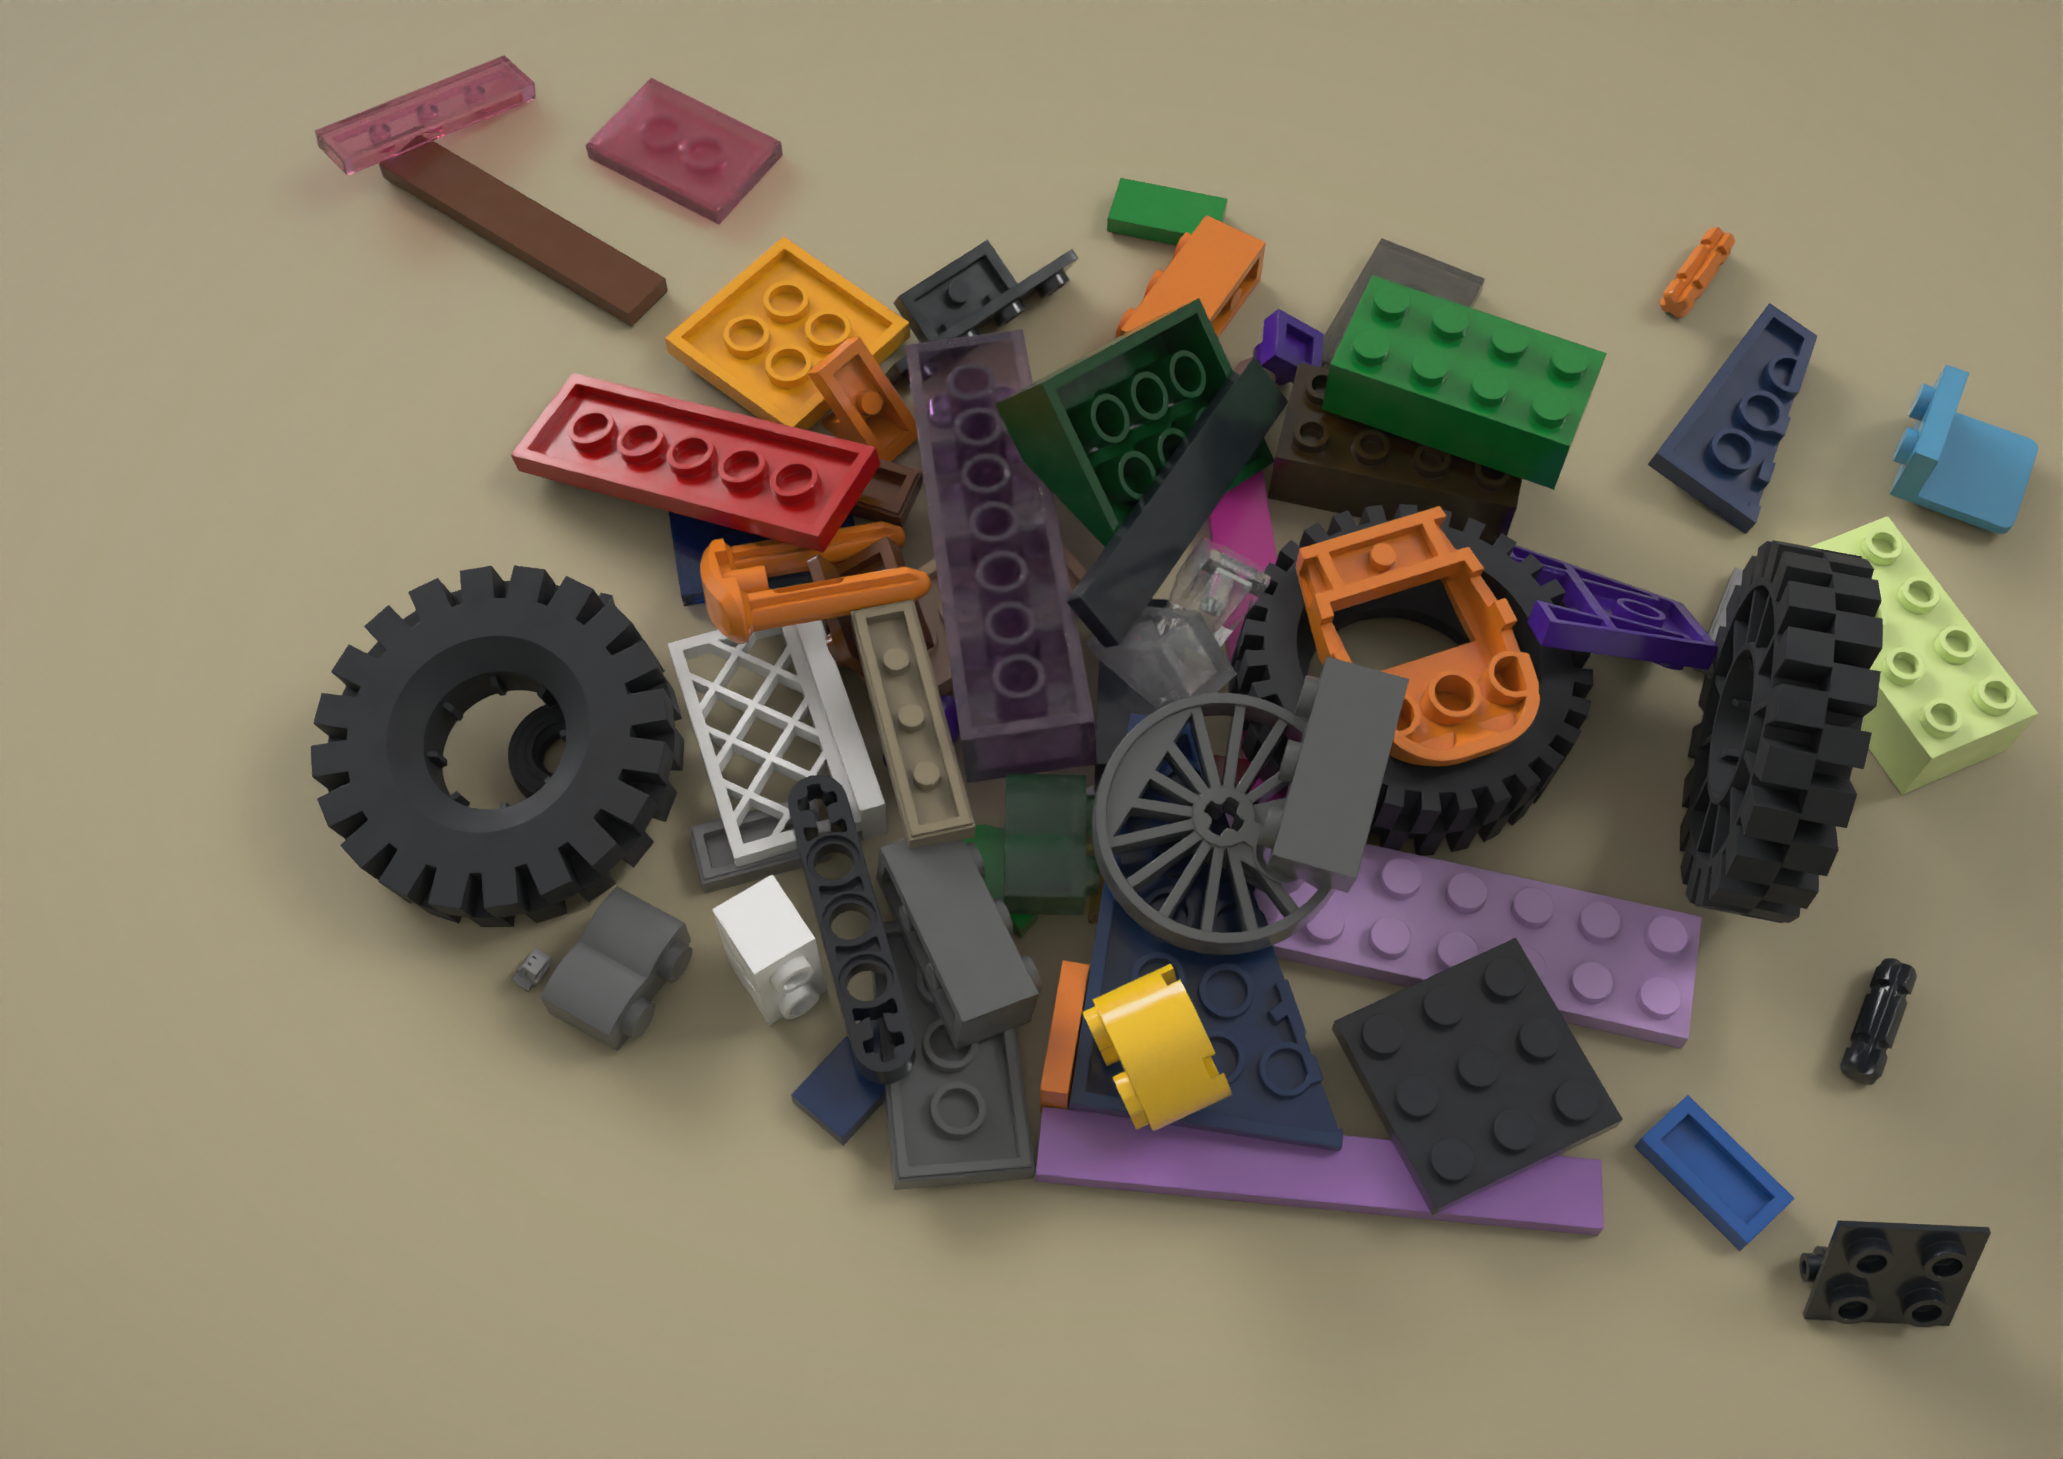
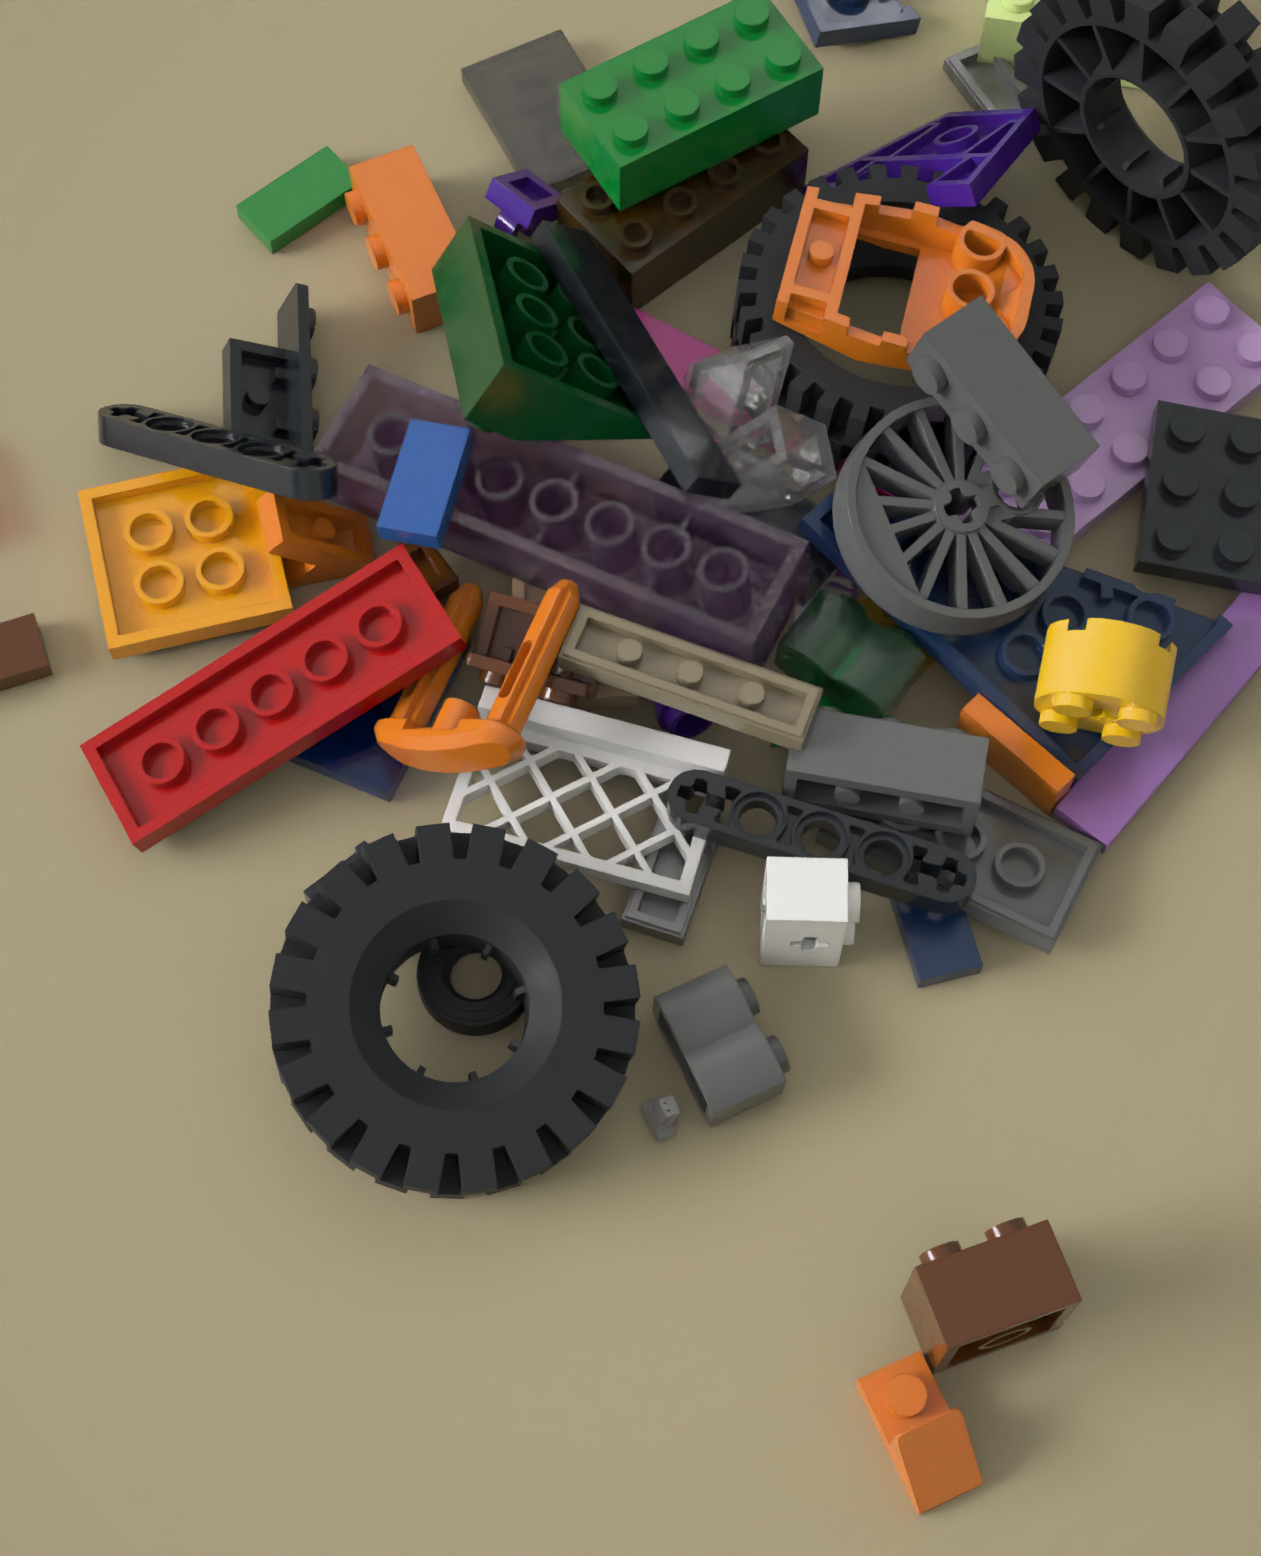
camera: 55 degrees left, 5 degrees up
(358, 1360) = (920, 1432): none -> orange slope
(499, 1318) = (989, 1293): none -> reddish brown brick
(873, 293) = (219, 452): none -> black beam
(936, 426) = (425, 483): none -> blue tile

